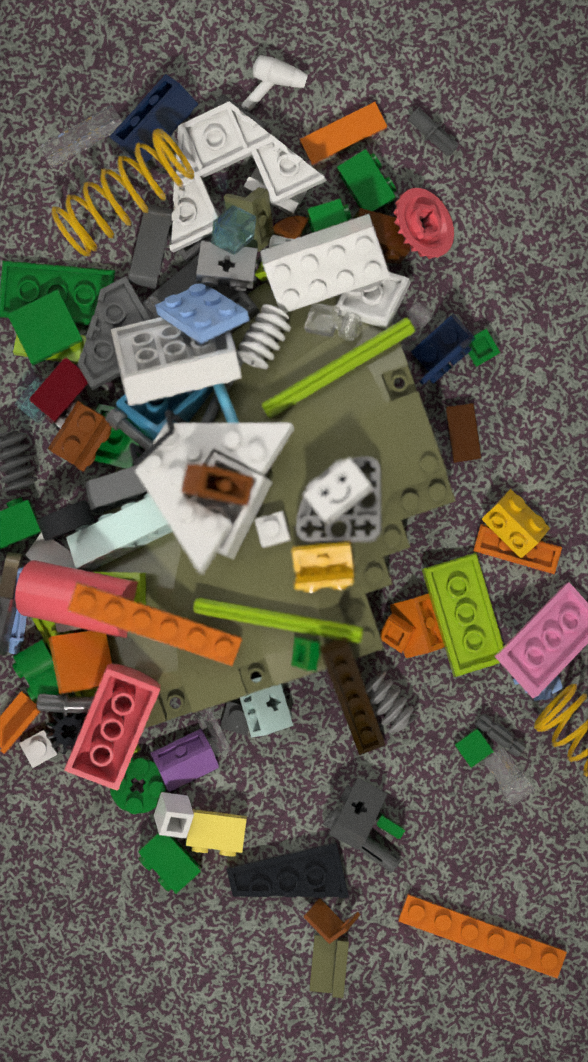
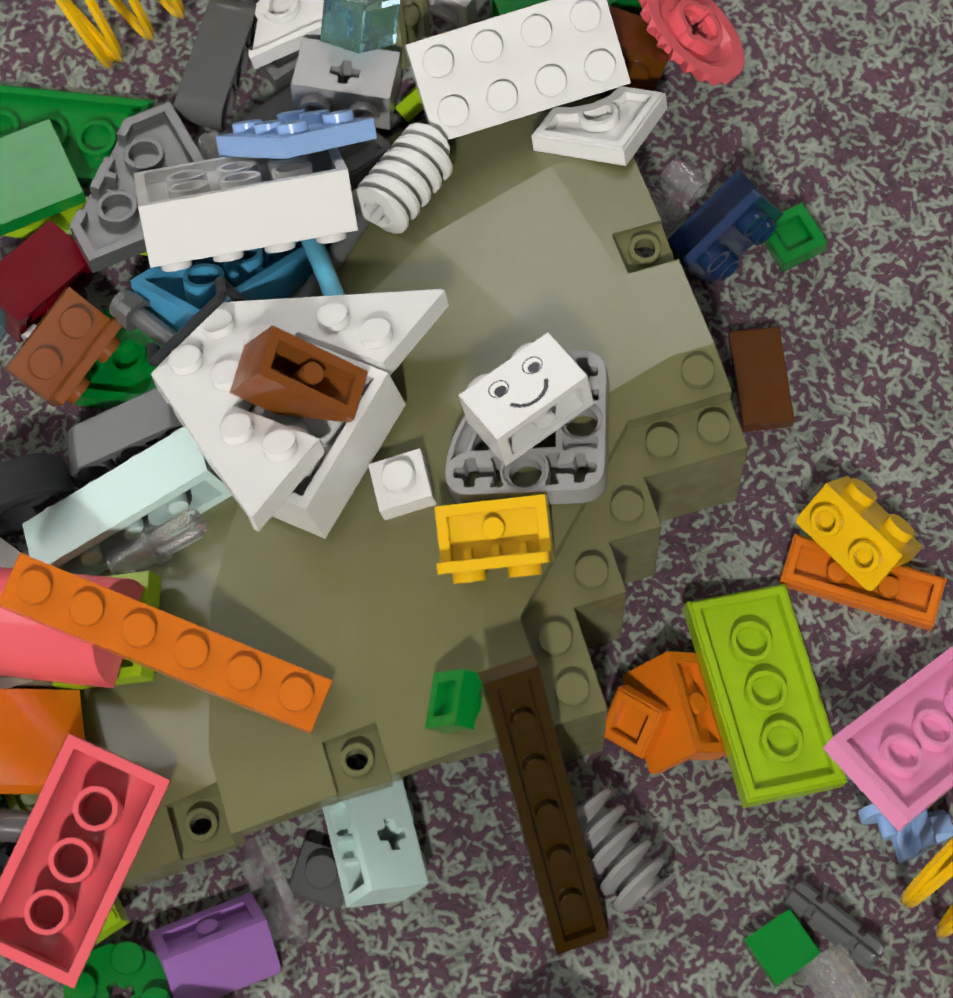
camera: 10 degrees right, 20 degrees down
(141, 554) = (157, 543): none -> clear axle
(278, 620) = (397, 642): lime axle -> none
(326, 319) = (515, 150): clear plate -> none
(338, 367) = (536, 220): lime axle -> none

